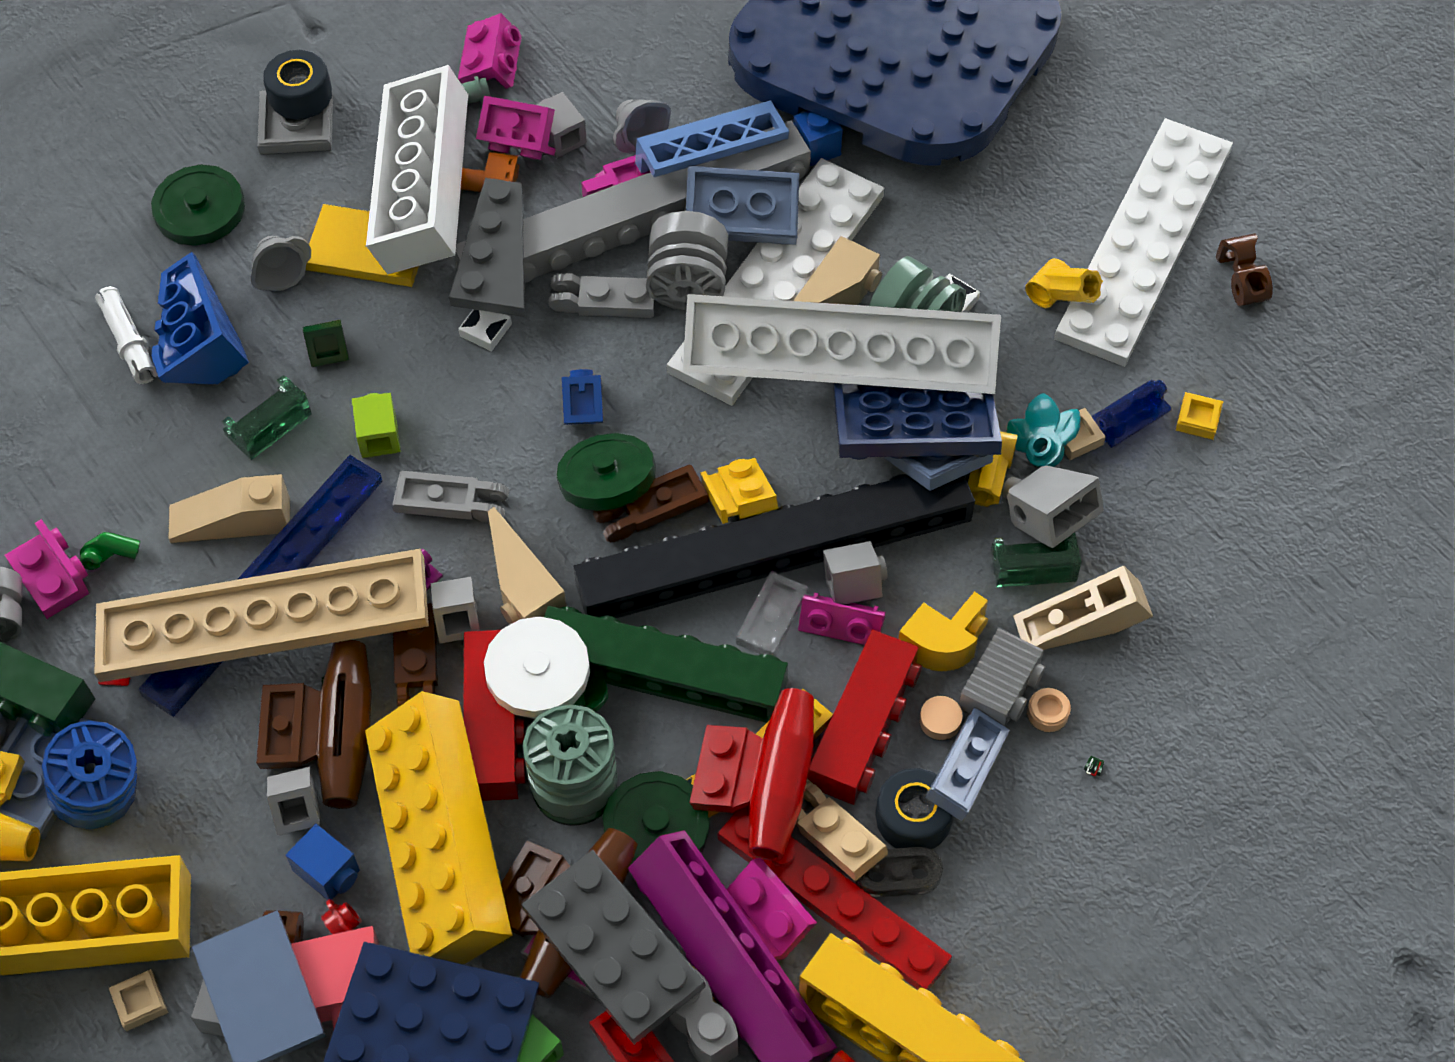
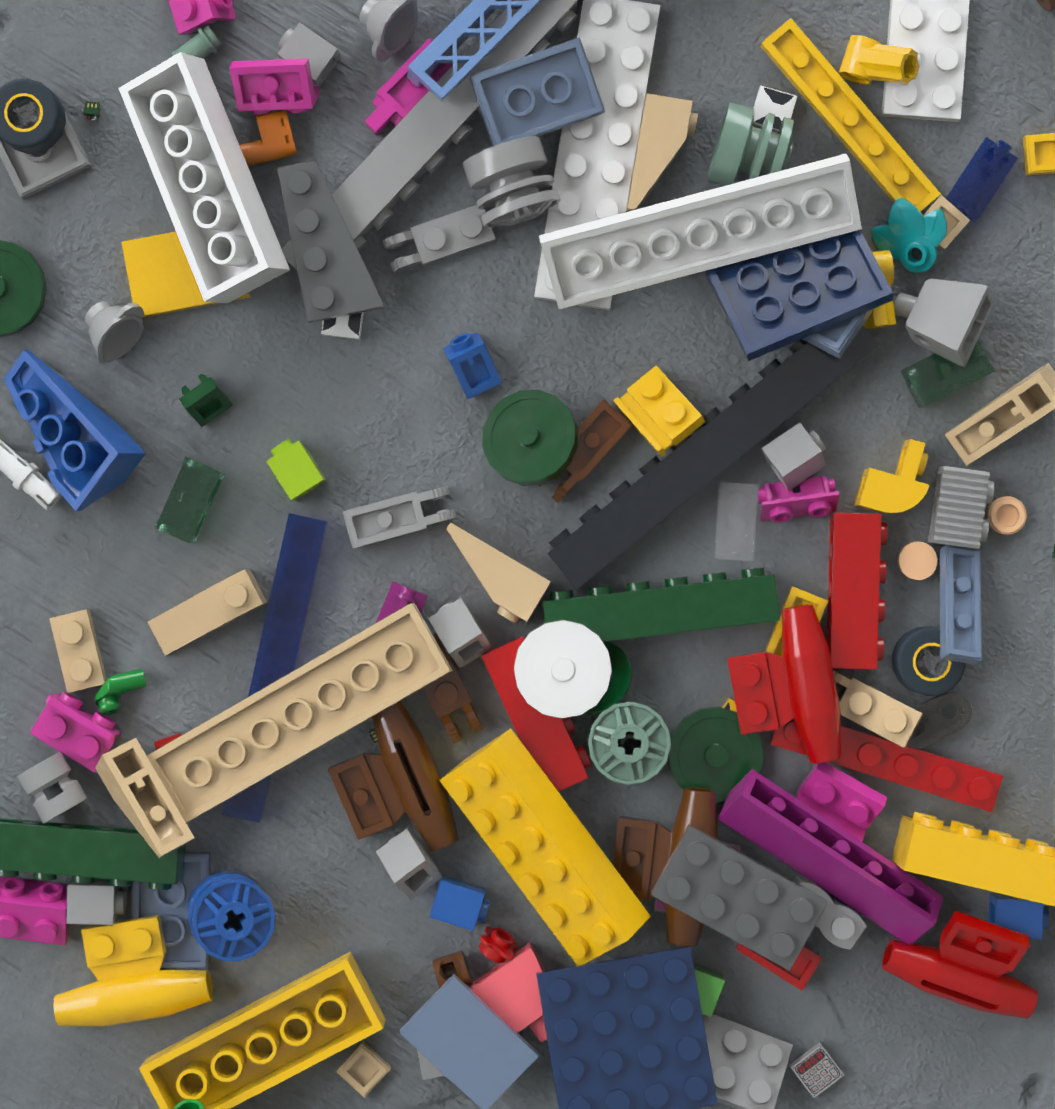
camera: 20 degrees left, 30 degrees up
(72, 630) = (143, 797): none -> tan slope
(92, 504) = (78, 650): none -> tan plate
(355, 110) = (91, 109): none -> dark green piece
(1020, 320) = (848, 116): none -> yellow plate

